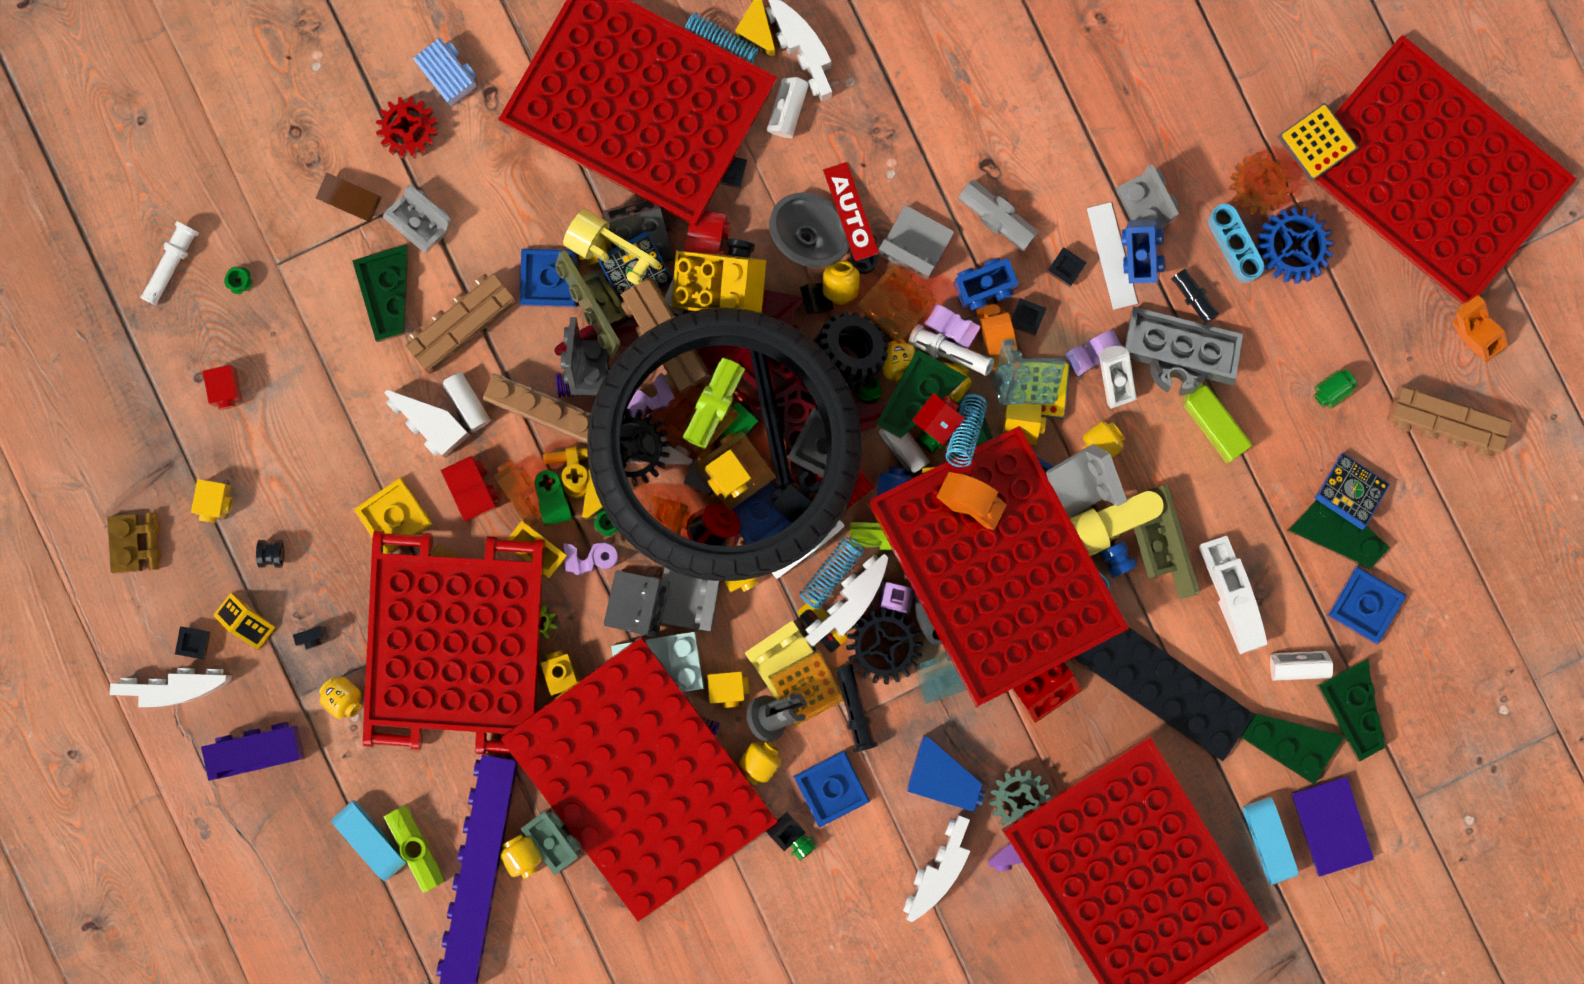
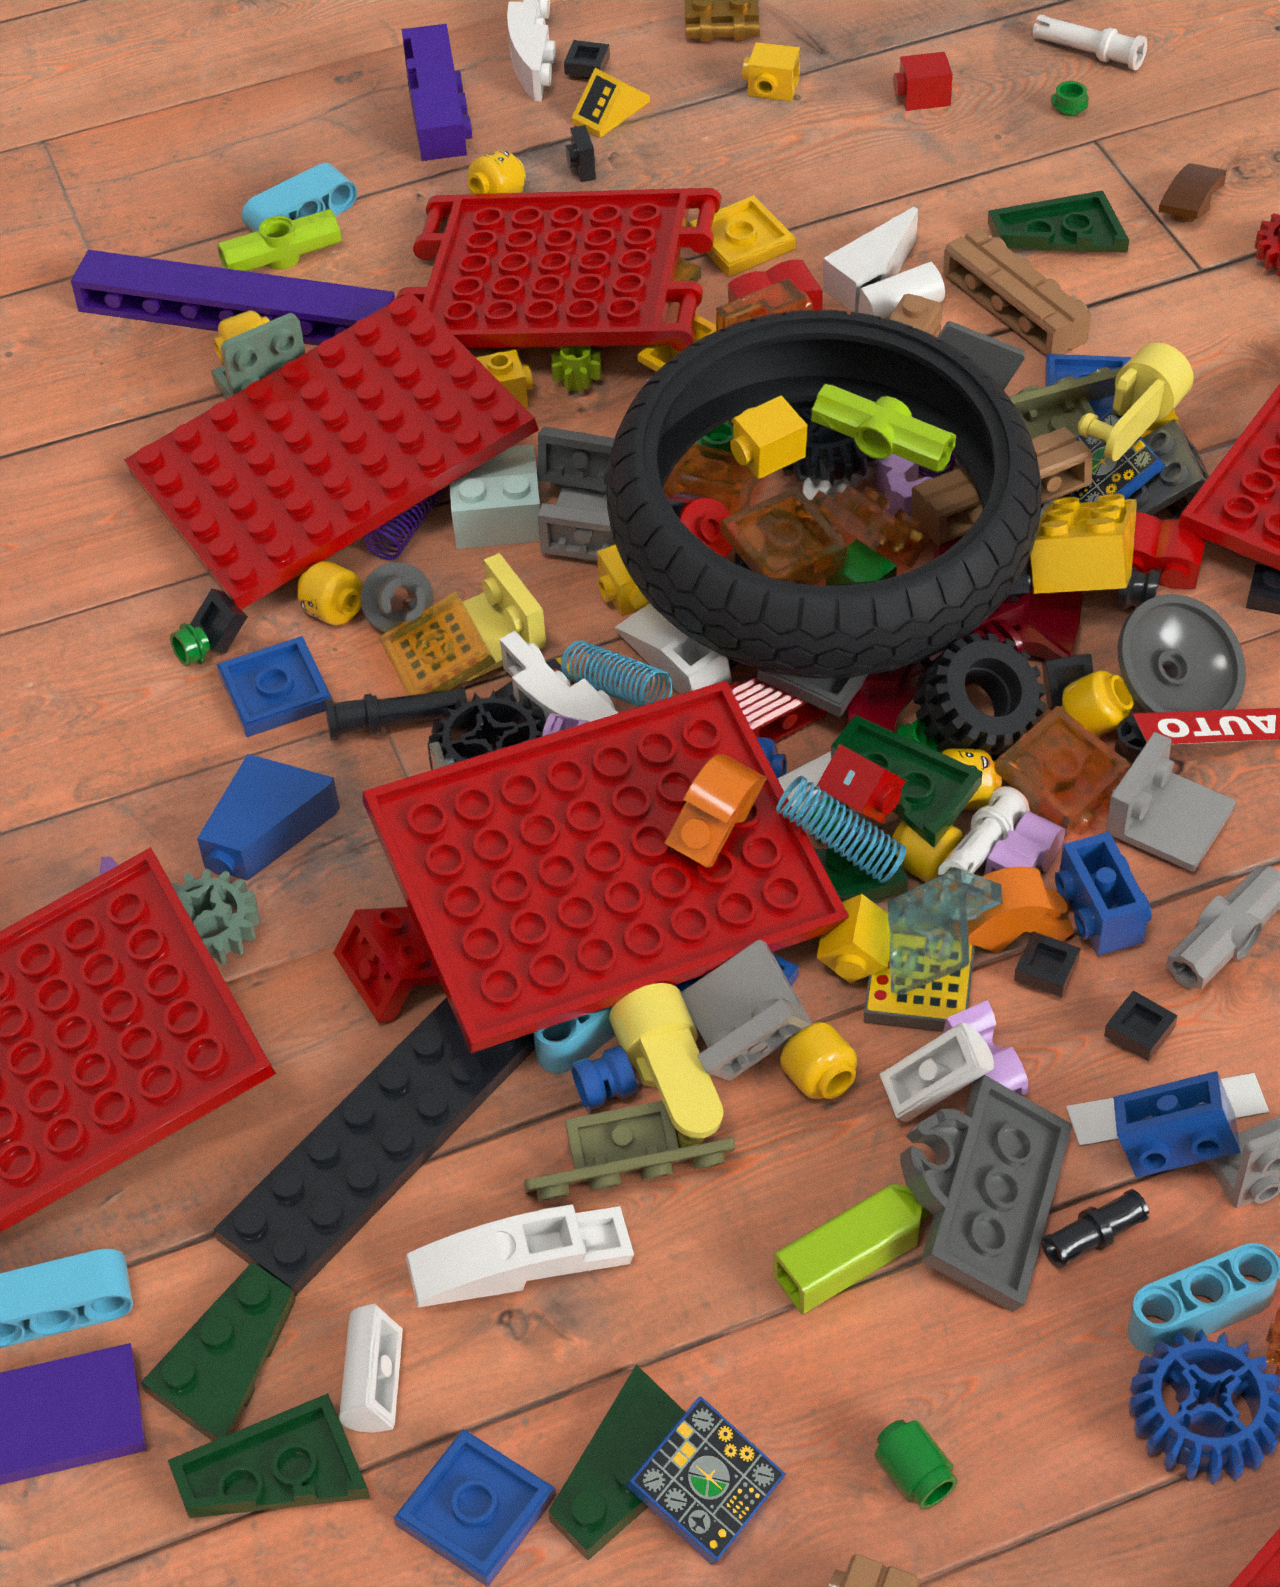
camera: 95 degrees right, 35 degrees down
(270, 553) = (691, 126): black wheel -> none
(418, 219) = (1163, 254): light grey bracket -> none
(727, 688) = (450, 558): yellow brick -> none
(935, 882) = (102, 806): white slope -> none

